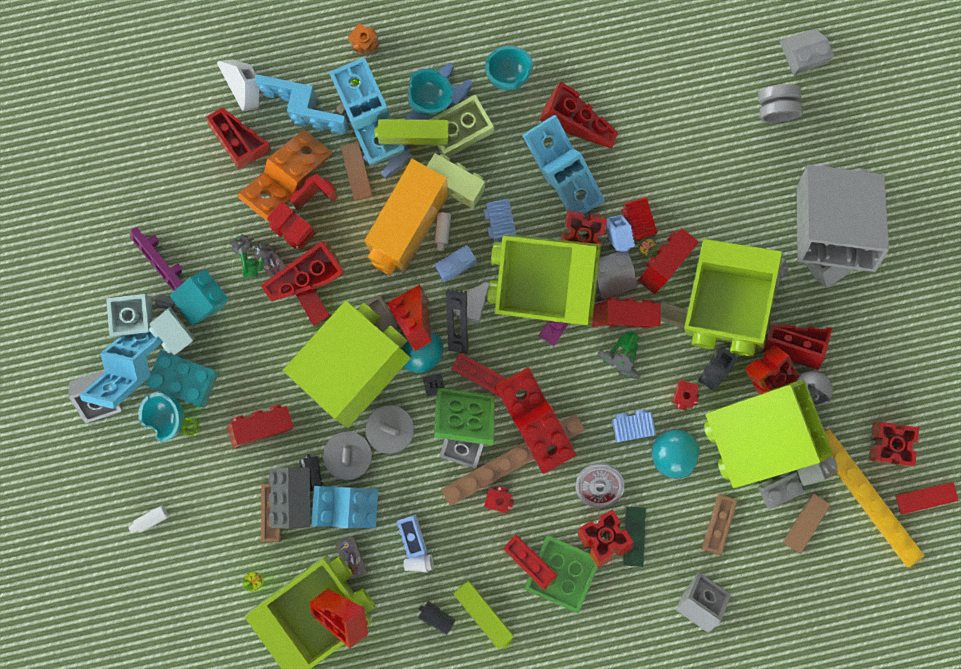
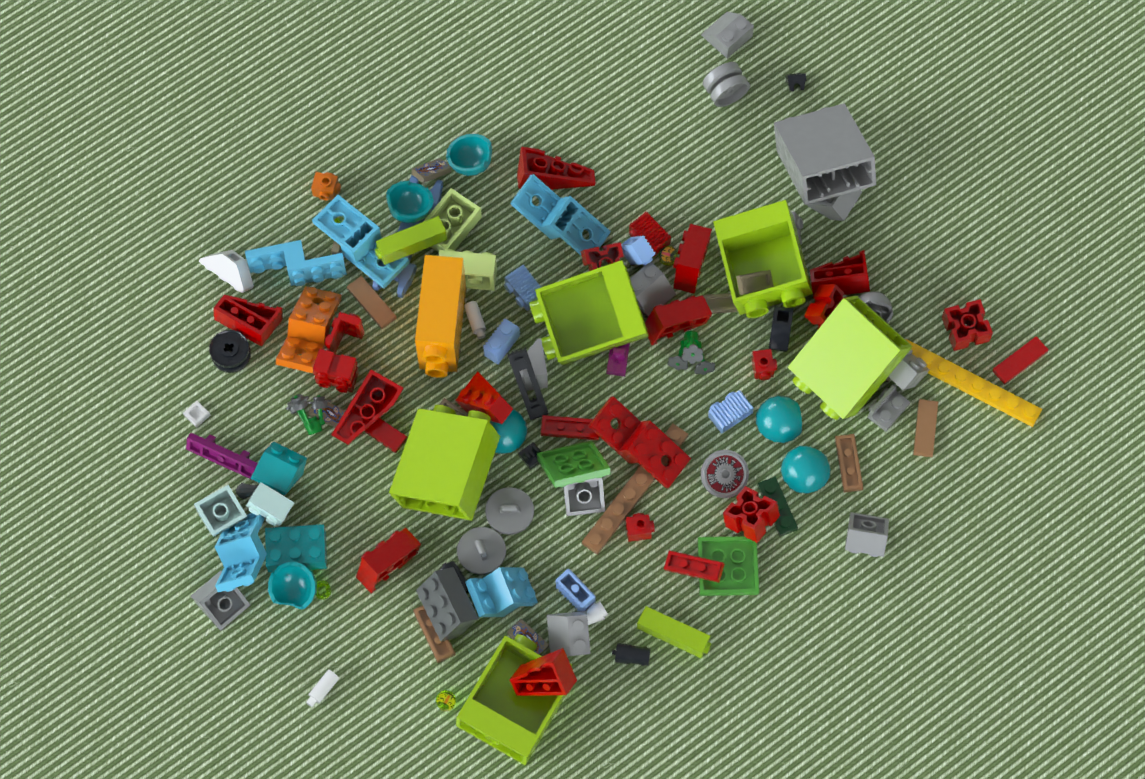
camera: 25 degrees left, 15 degrees down
(153, 208) = (196, 414): none -> white tile
(197, 161) = (223, 358): none -> black wheel
(388, 574) = (569, 632): none -> light grey slope
(466, 67) = (431, 170): none -> dark tan tile
(676, 513) = (805, 469): none -> teal cylinder
(714, 317) = (754, 282): none -> dark tan tile
(847, 124) = (793, 79): none -> black tile

